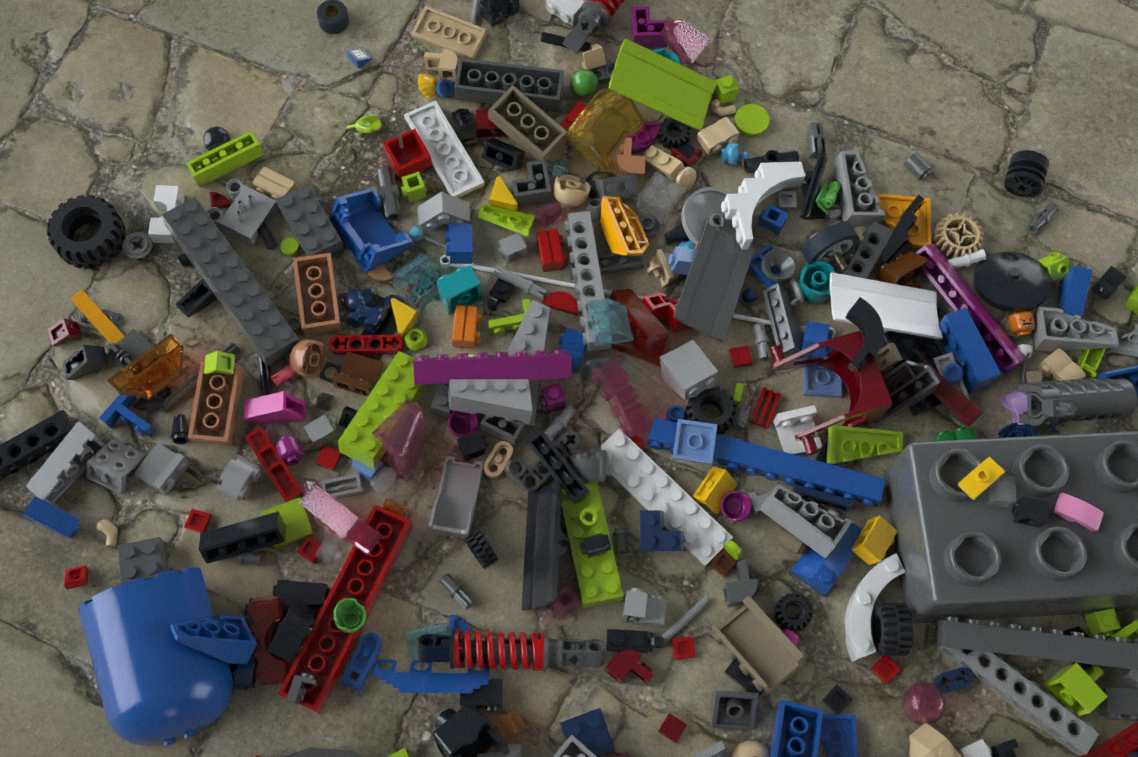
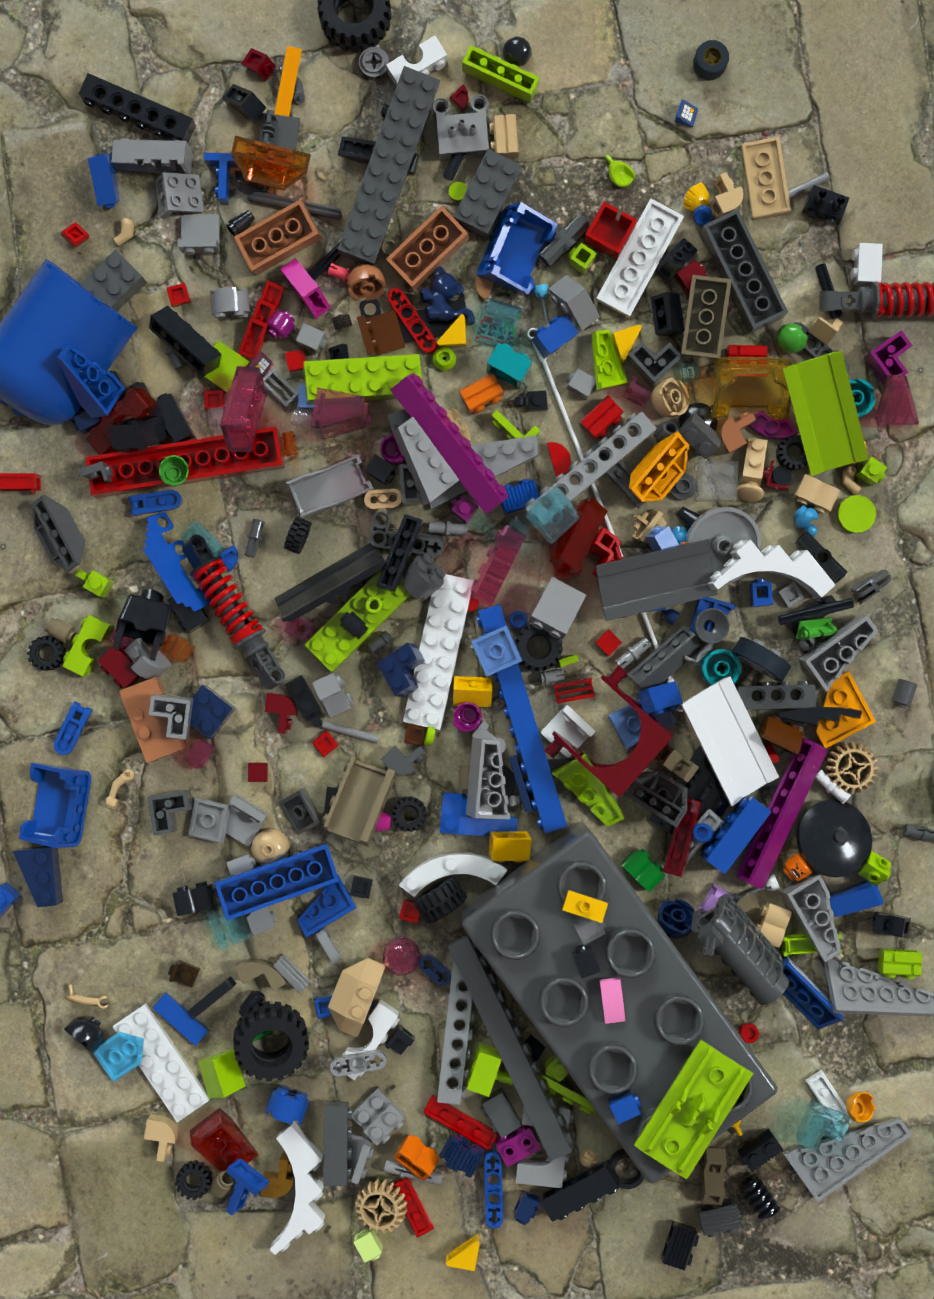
camera: 60 degrees right, 20 degrees up
(219, 362) = (306, 216): lime panel -> none
(520, 282) = (553, 412): light grey pin -> none
(870, 324) = (678, 736): black arch -> none

